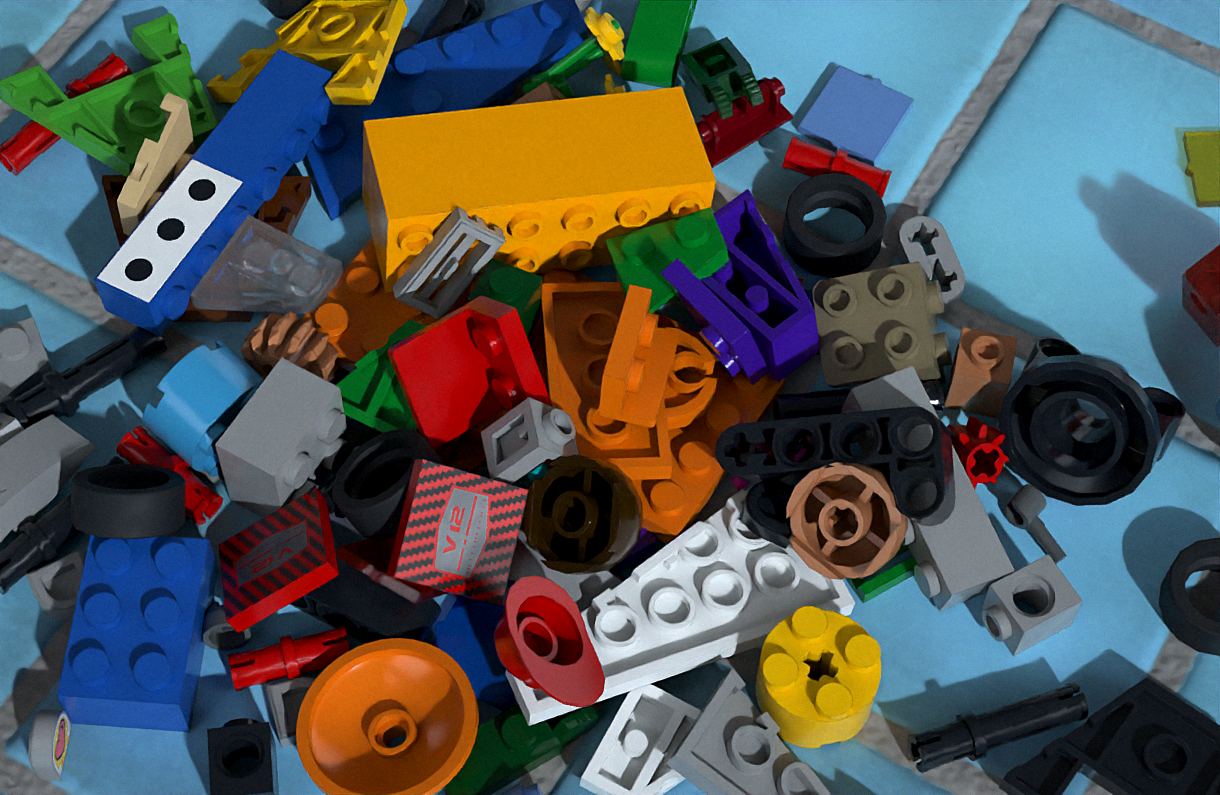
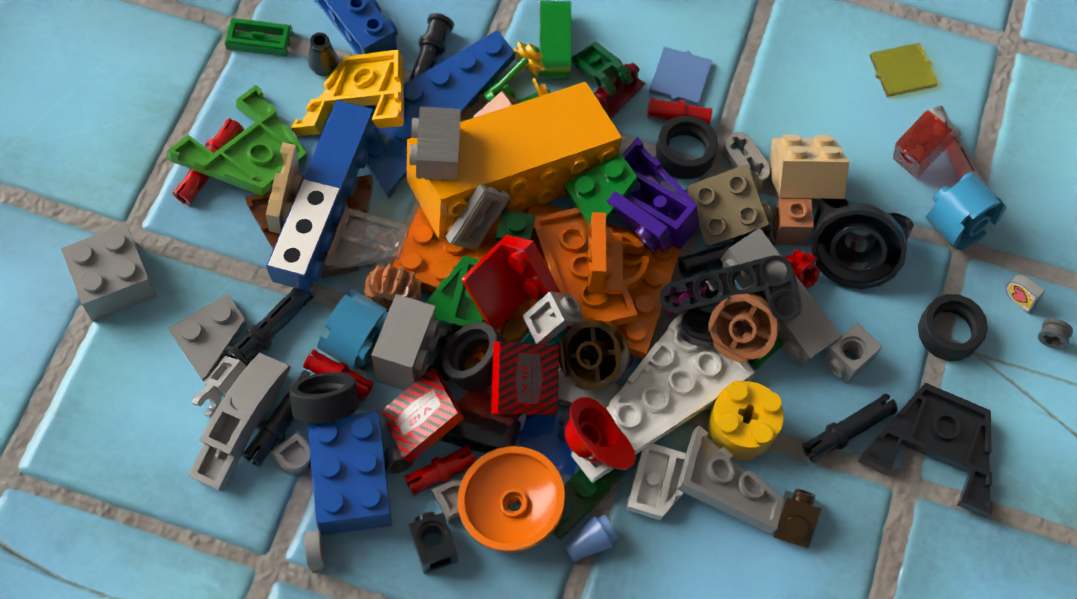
camera: 15 degrees left, 5 degrees up
(403, 132) = (437, 143): none -> light grey brick
(1023, 514) = (833, 299): dark grey hand -> none
(1026, 288) = (808, 167): none -> tan brick

